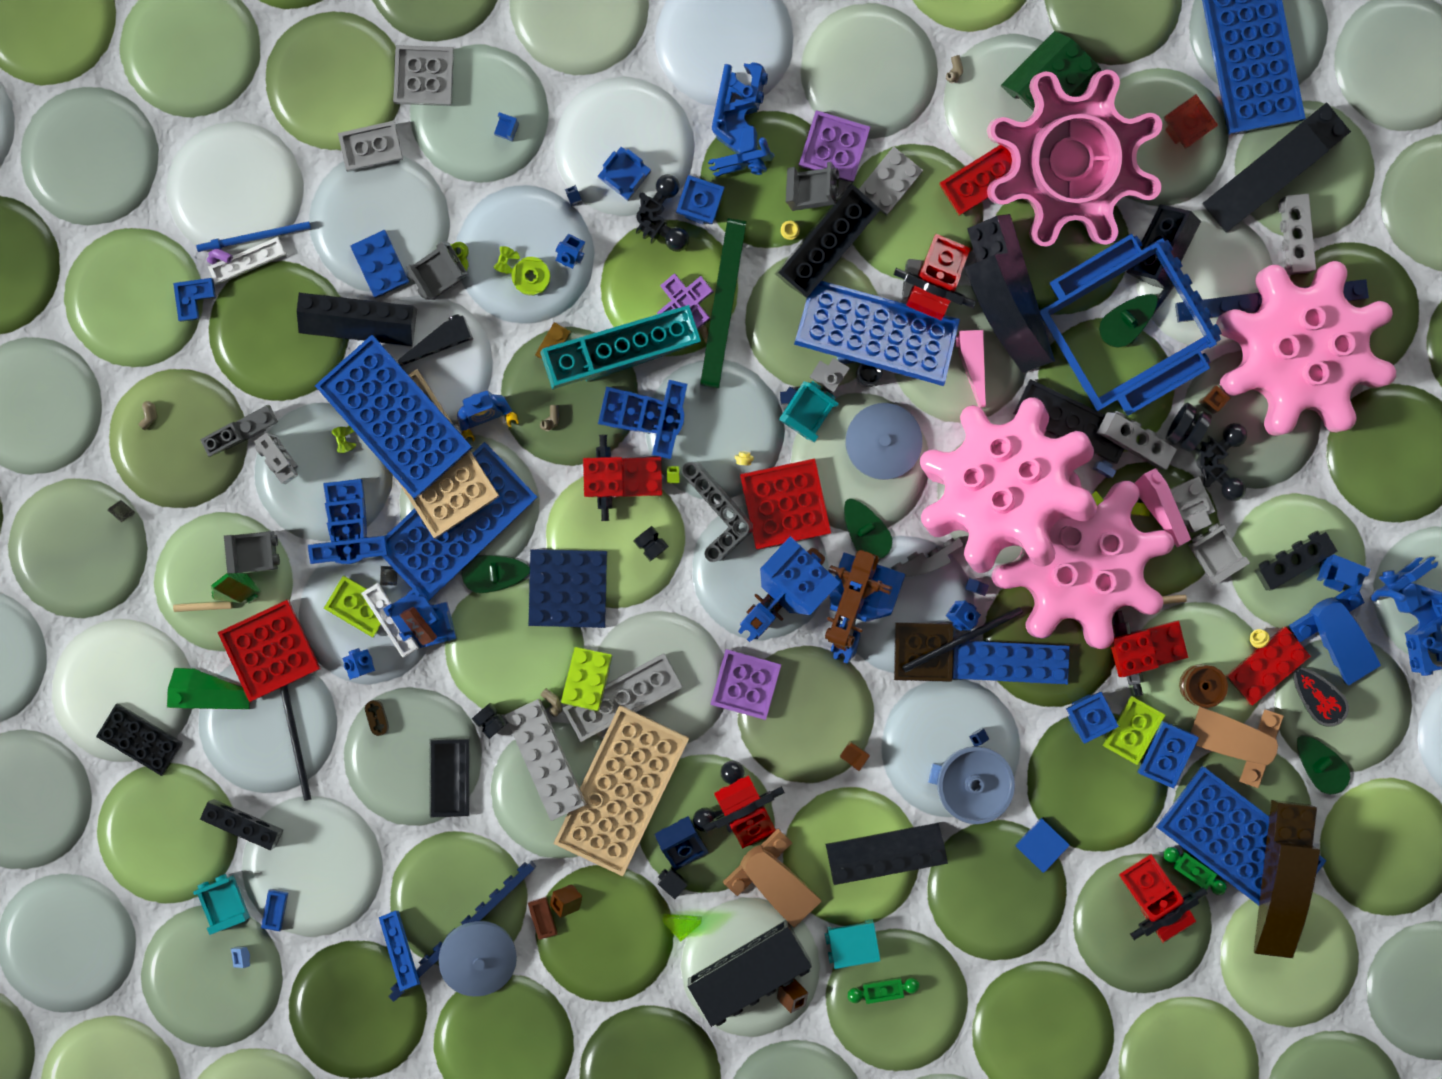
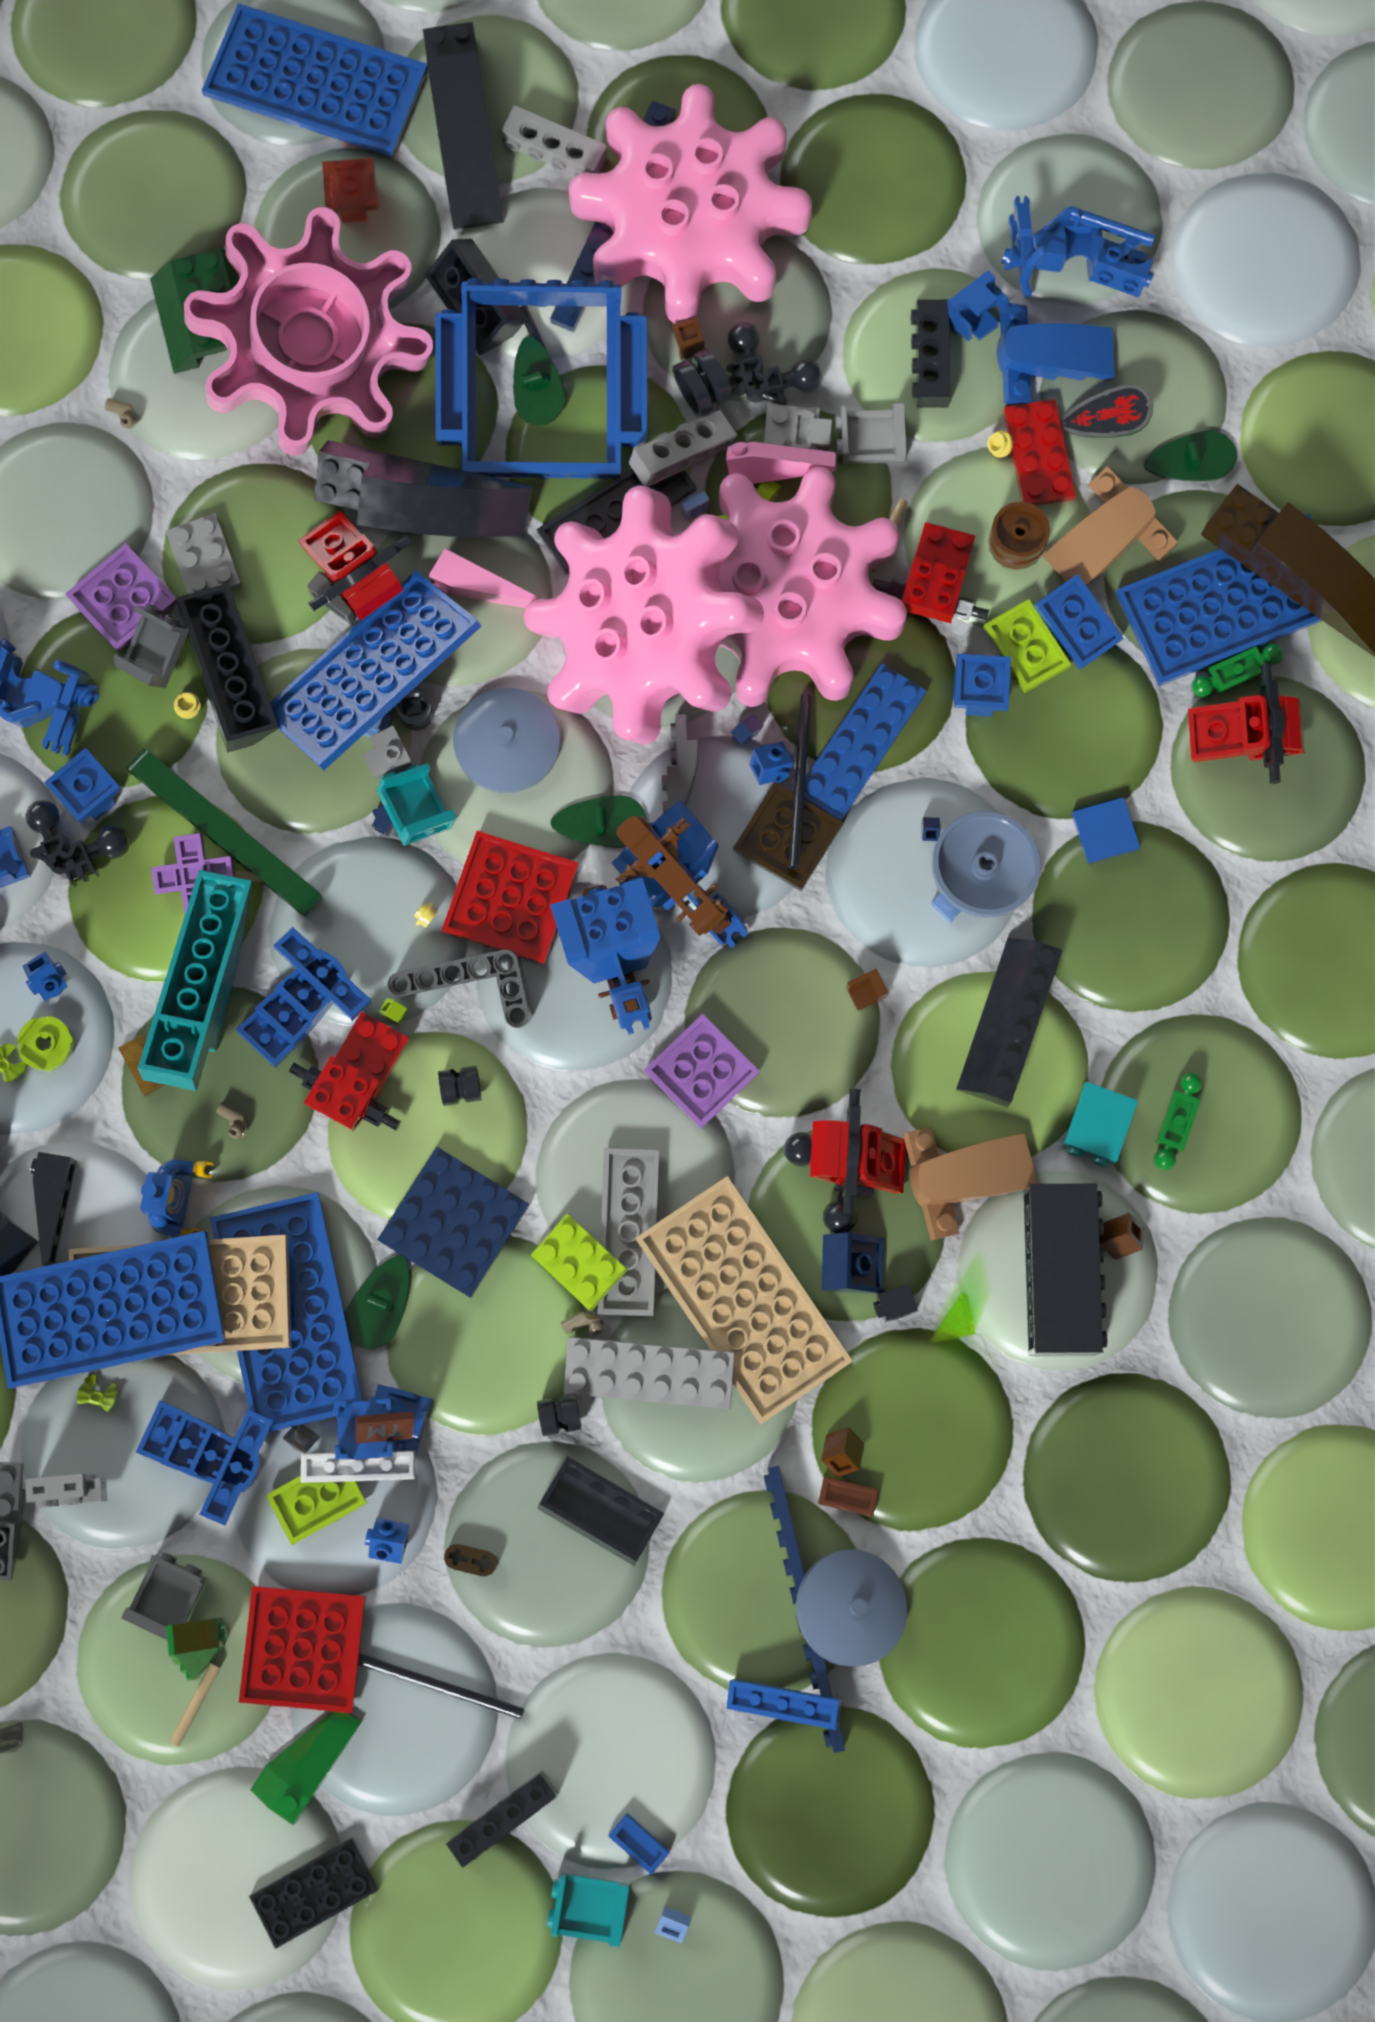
camera: 60 degrees left, 10 degrees down
(970, 184) = (265, 467): red plate -> none

